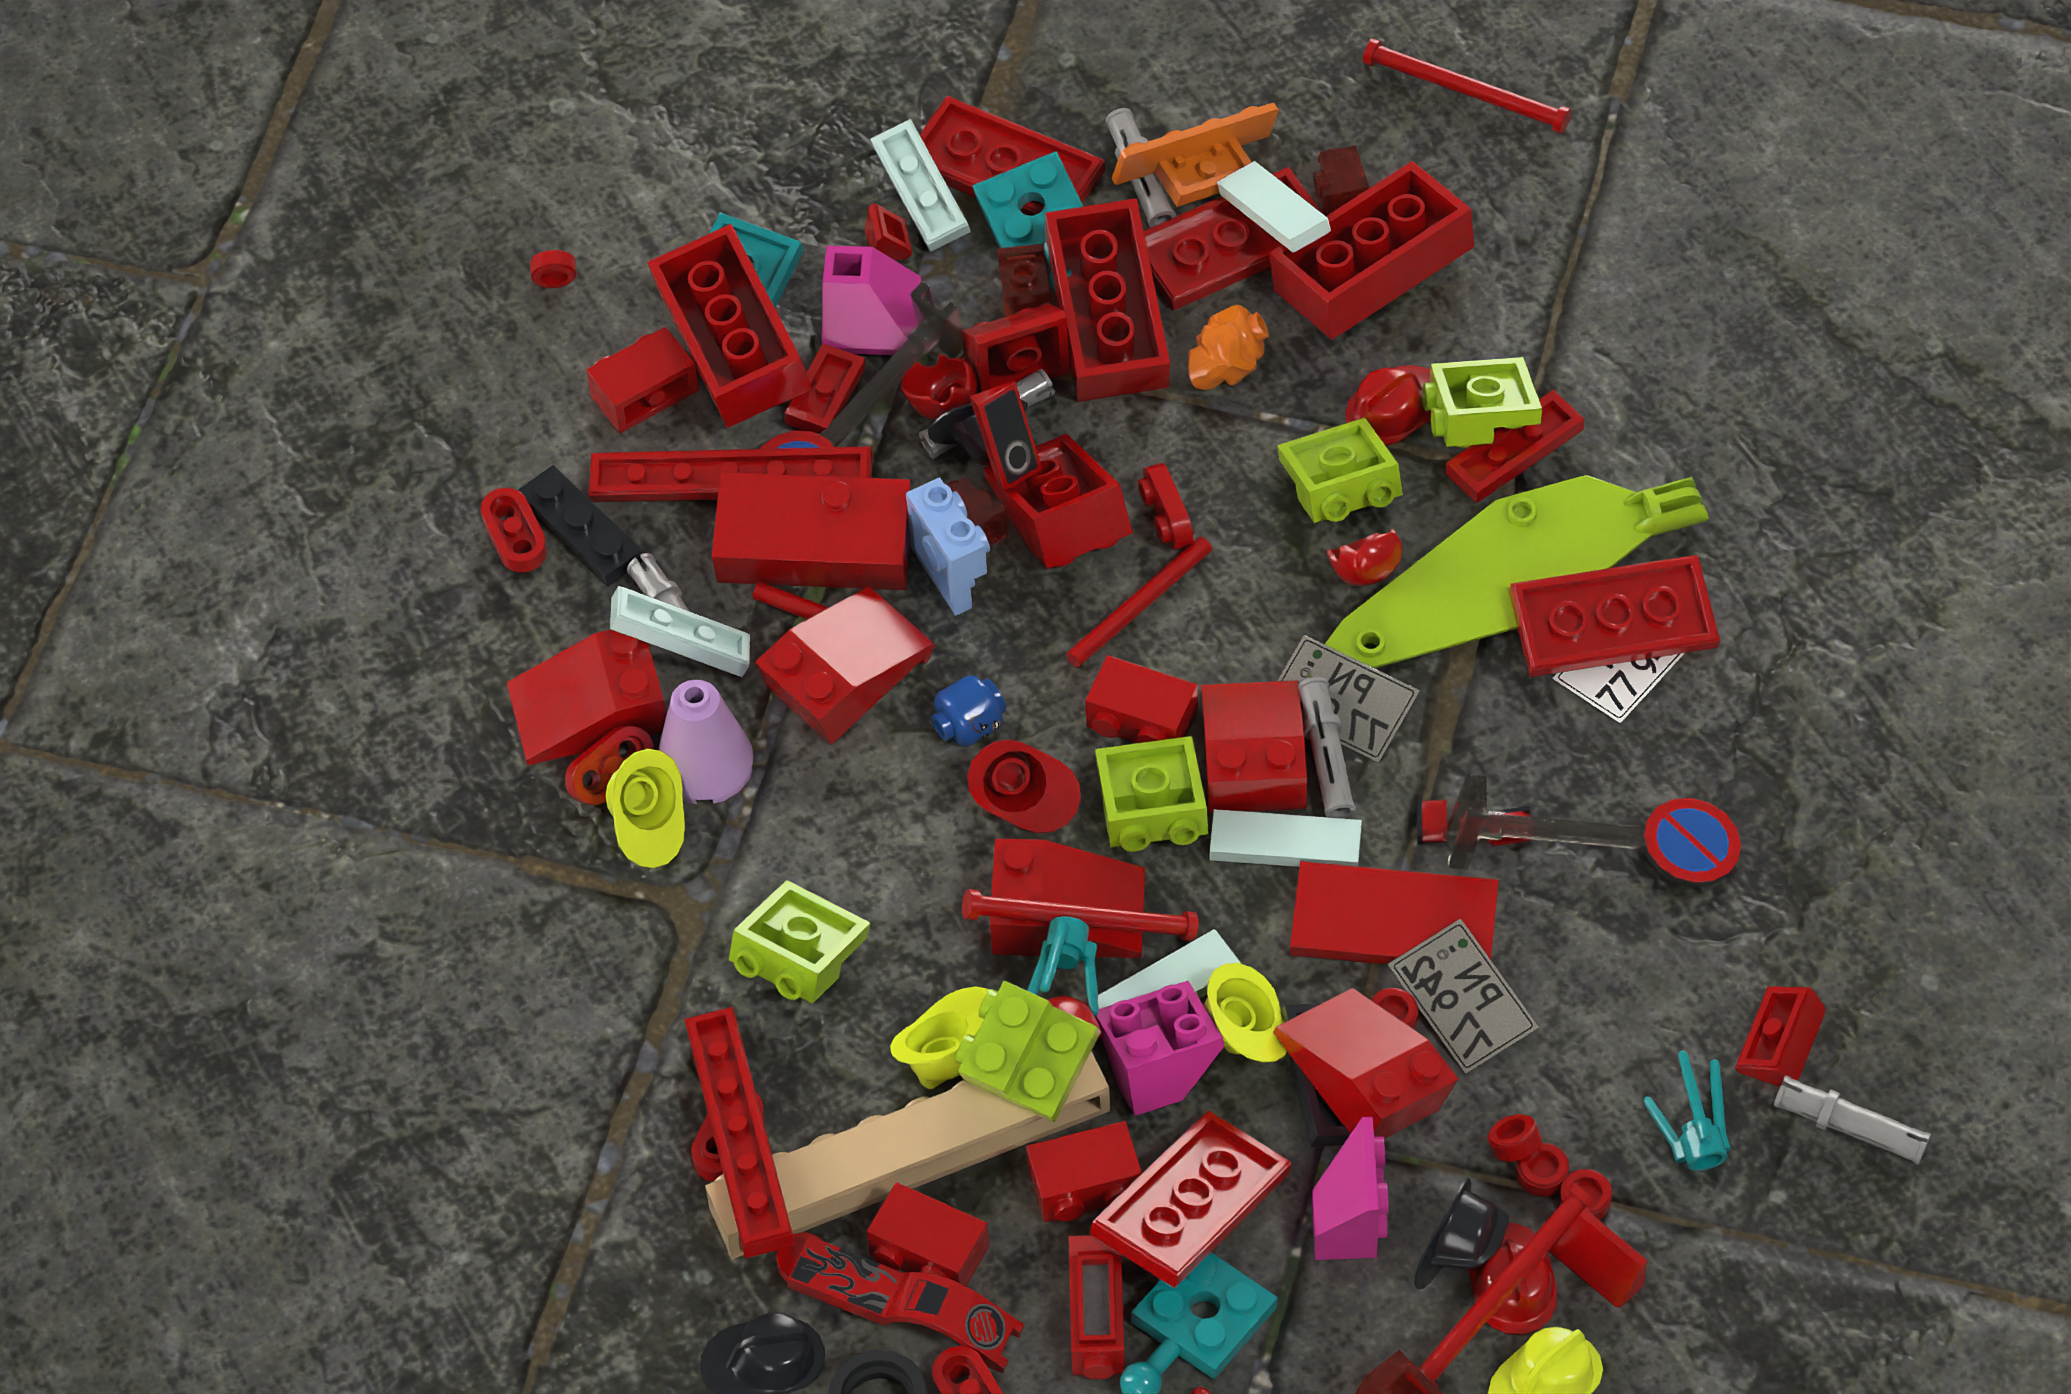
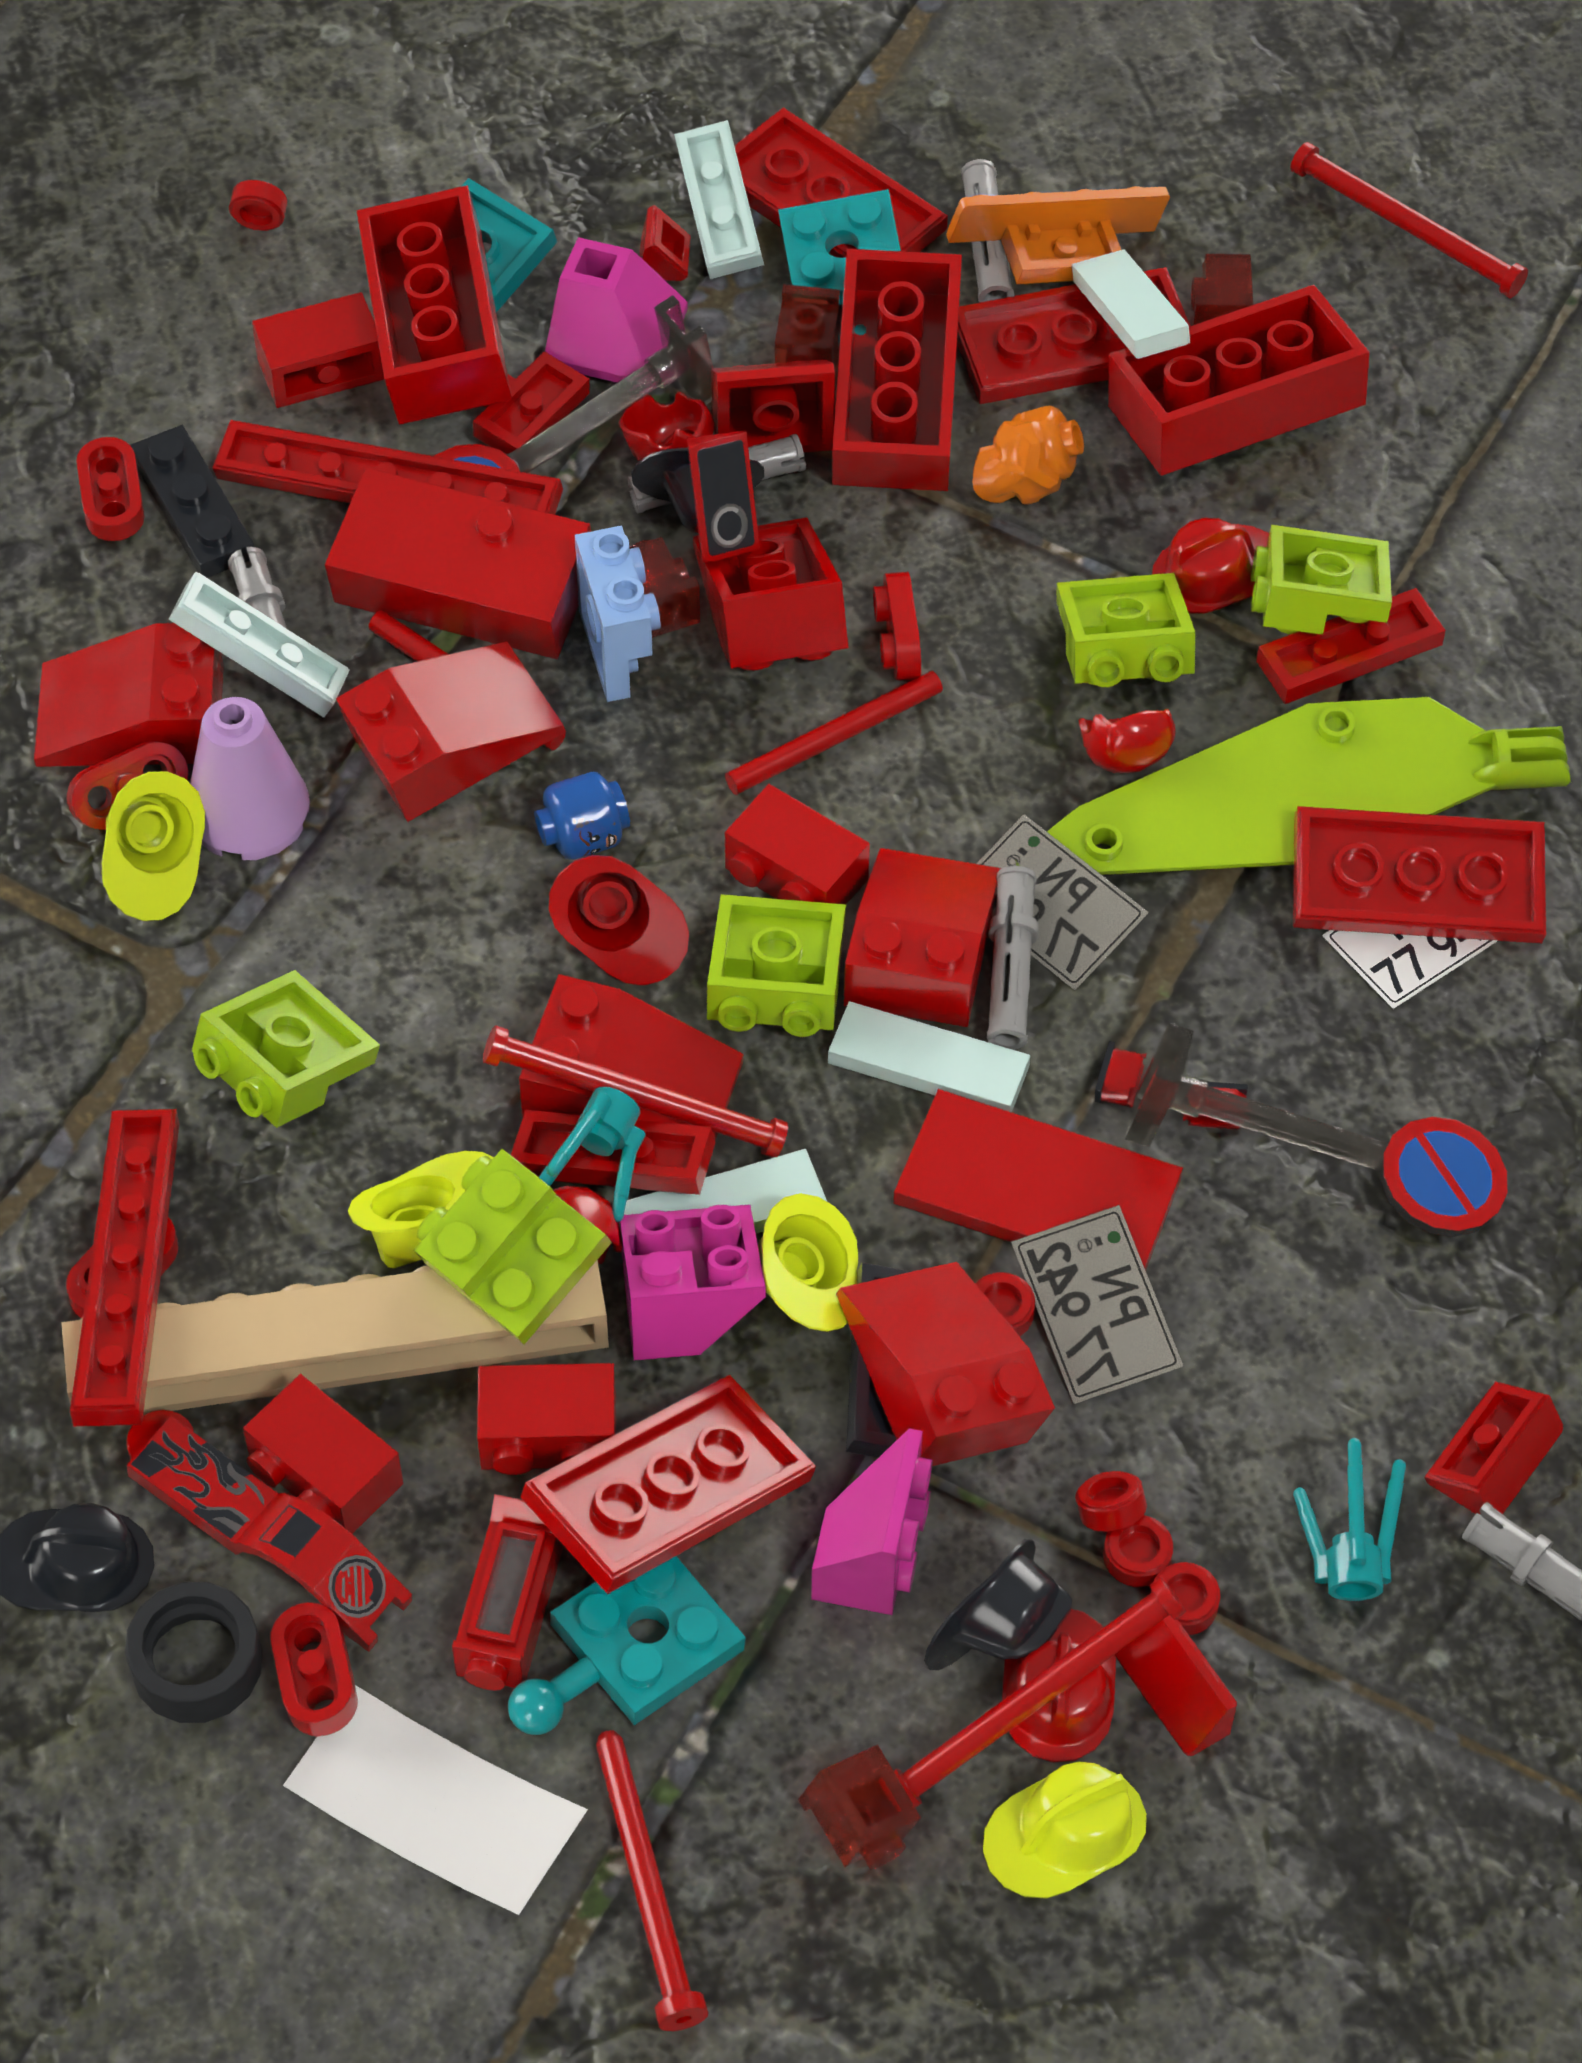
camera: 10 degrees right, 0 degrees up
(1118, 961) = (668, 1160): none -> red plate

